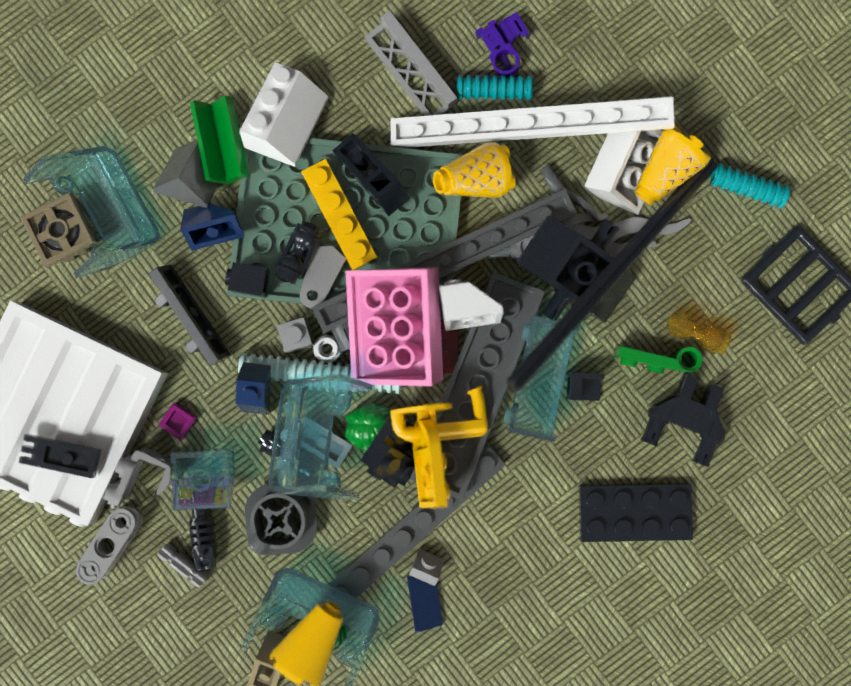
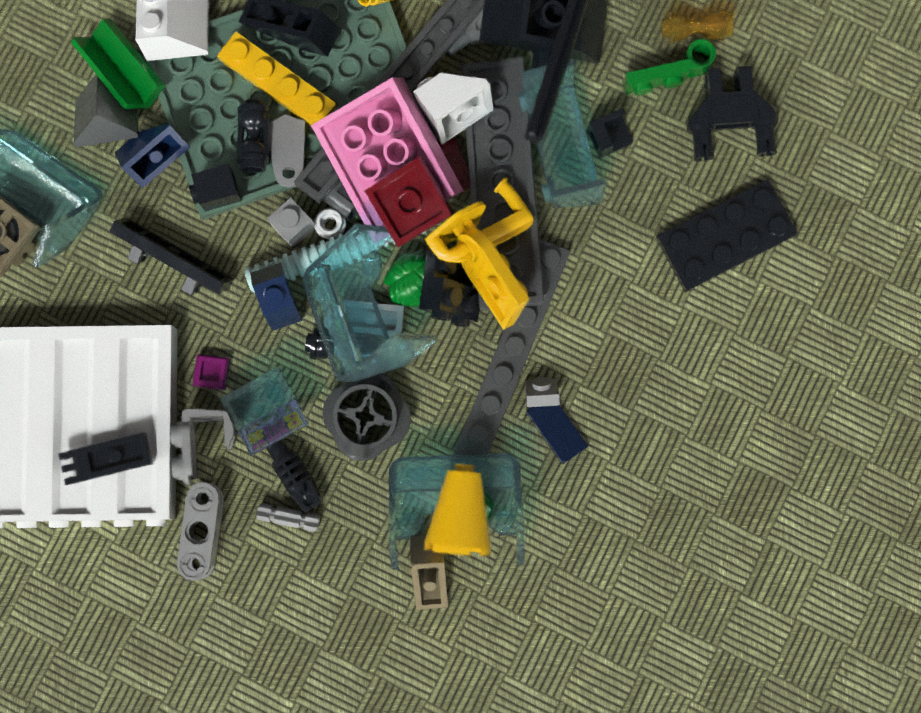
camera: 25 degrees left, 5 degrees down
(392, 374) = (409, 201): none -> dark red plate

